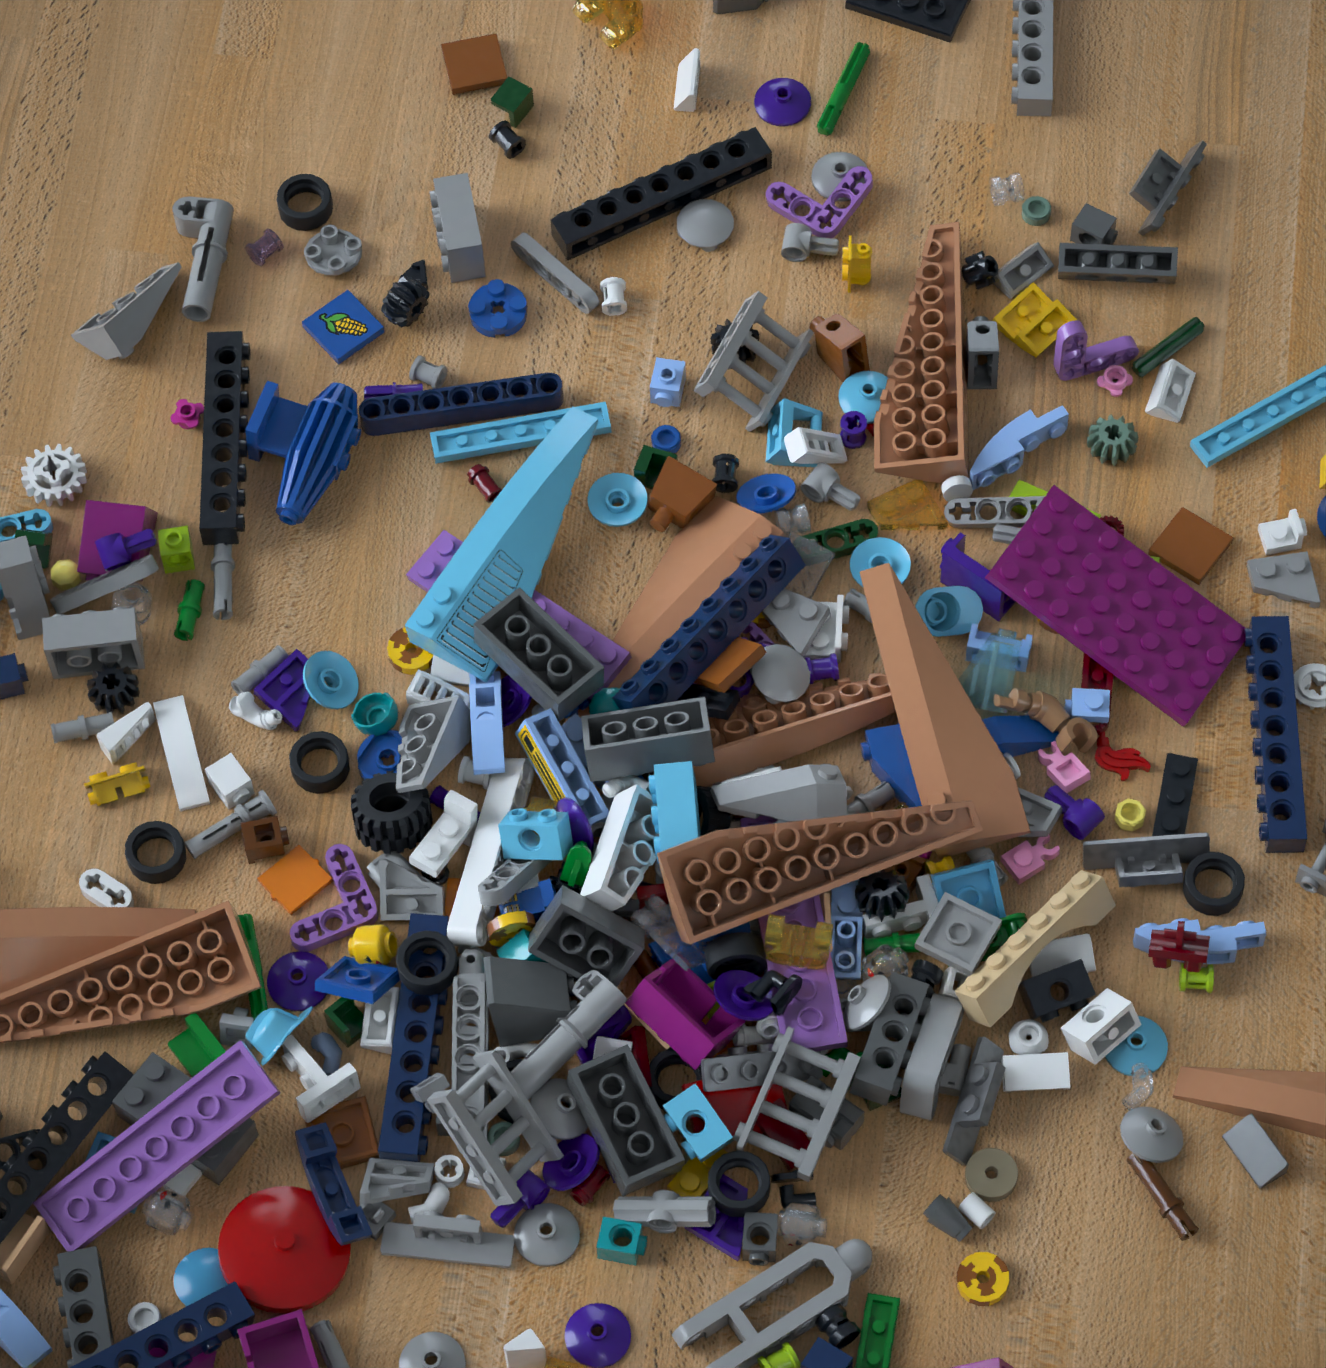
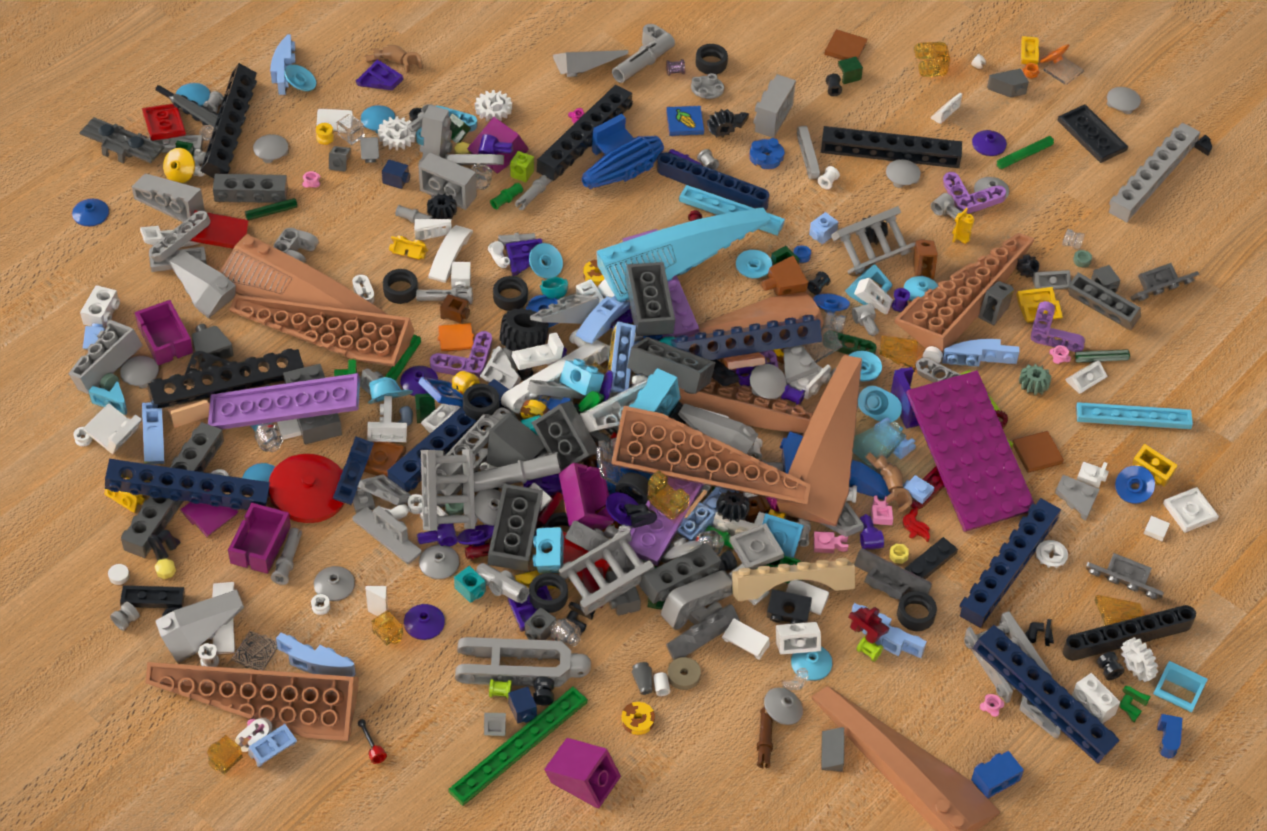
camera: 30 degrees right, 10 degrees down
(1023, 1028) = (762, 626): white plate -> none

